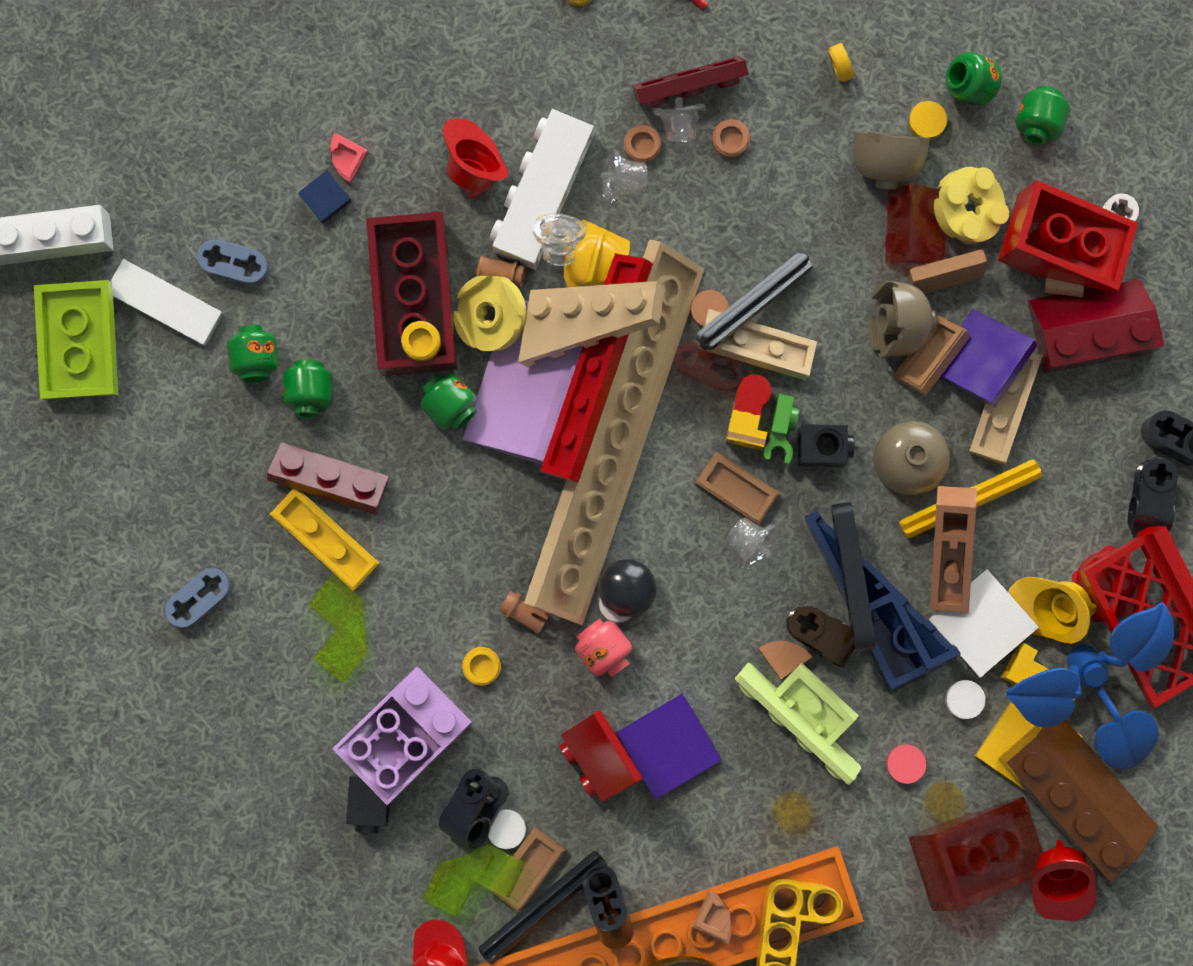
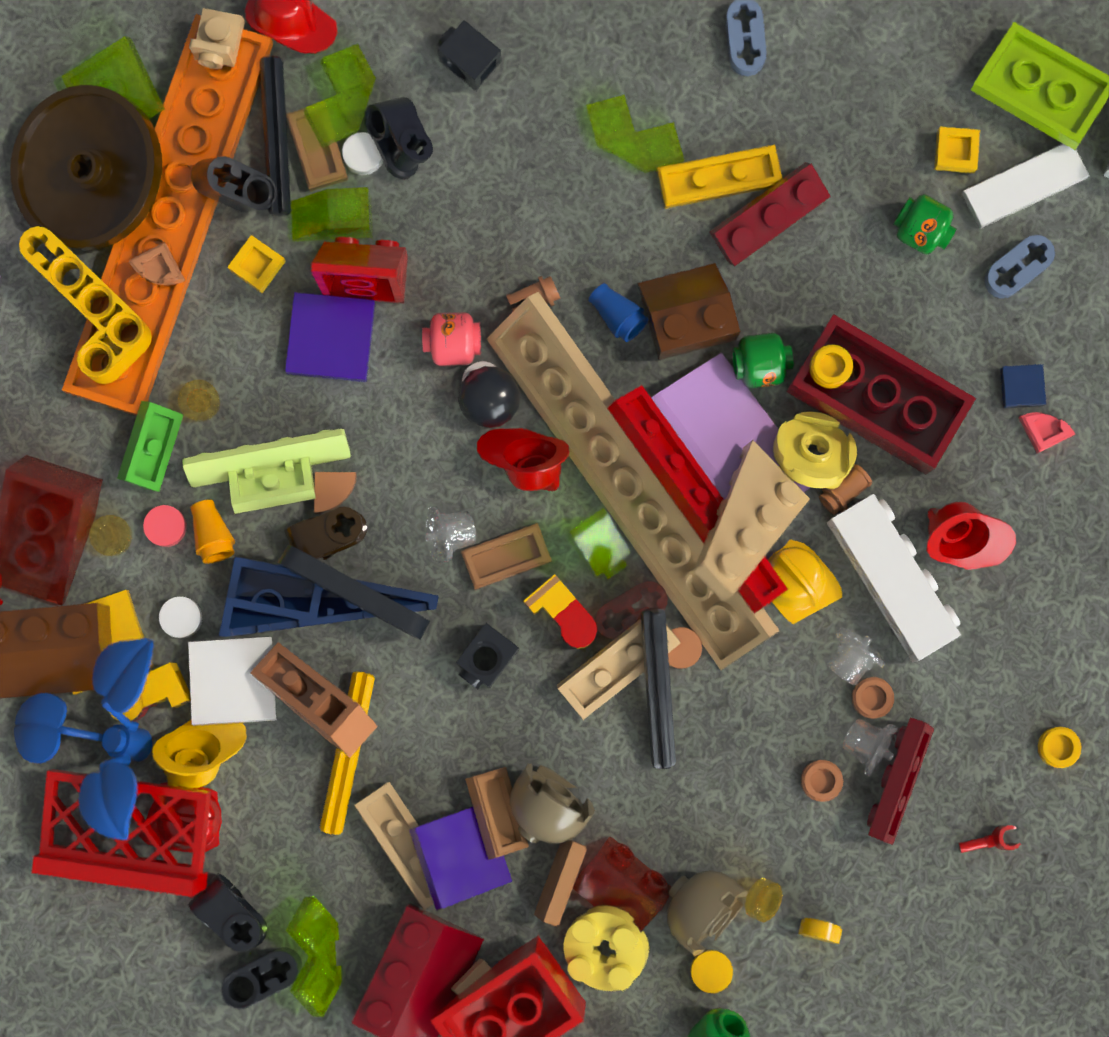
camera: 120 degrees right, 0 degrees up
(174, 372) = (957, 149): none -> yellow plate
(307, 388) = (860, 249): green head -> none
(402, 735) = (502, 117): lavender slope -> none
(448, 486) = (689, 311): none -> reddish brown slope
(481, 666) = (514, 230): yellow tile -> none
(489, 538) = (620, 314): none -> blue cone
(559, 237) = (839, 554): clear piece -> none
(574, 815) = (332, 215): none -> clear neon green slope
(652, 527) = (526, 456): none -> red piece
(654, 845) = (256, 264): none -> yellow plate
(680, 421) = (600, 545): none -> clear neon green slope
(784, 419) = (535, 638): bright green plate -> none
(849, 118) = (763, 900): none -> clear yellow tile
(855, 819) = (150, 446): none -> bright green plate
(885, 724) = (211, 534): none -> light orange cone
(911, 458) = (420, 727): dark tan cylinder -> none
(1118, 423) = (320, 976): none -> clear neon green tile

